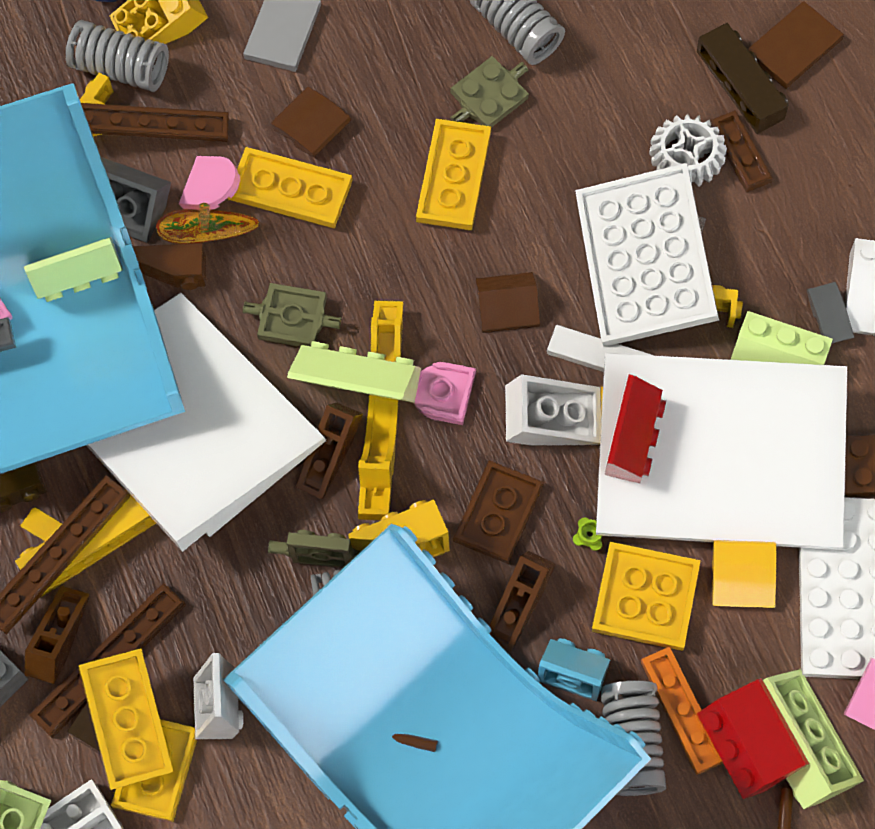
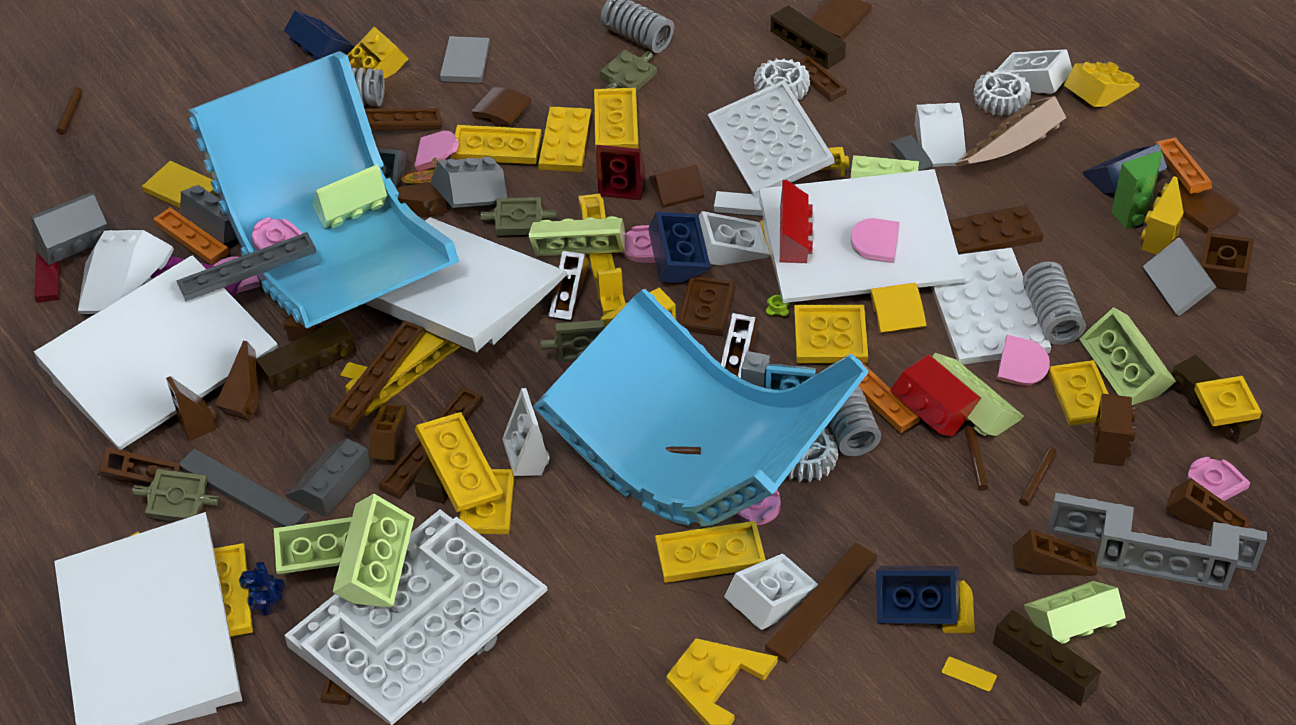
camera: 15 degrees left, 20 degrees down
(238, 257) = (469, 181): none -> slope
(381, 193) = (565, 139): none -> yellow plate
(433, 282) = (620, 172): none -> dark red slope
(481, 418) = (678, 246): none -> dark blue slope
(532, 640) = (754, 368): none -> light grey brick
(739, 466) = (875, 239): none -> bright pink tile

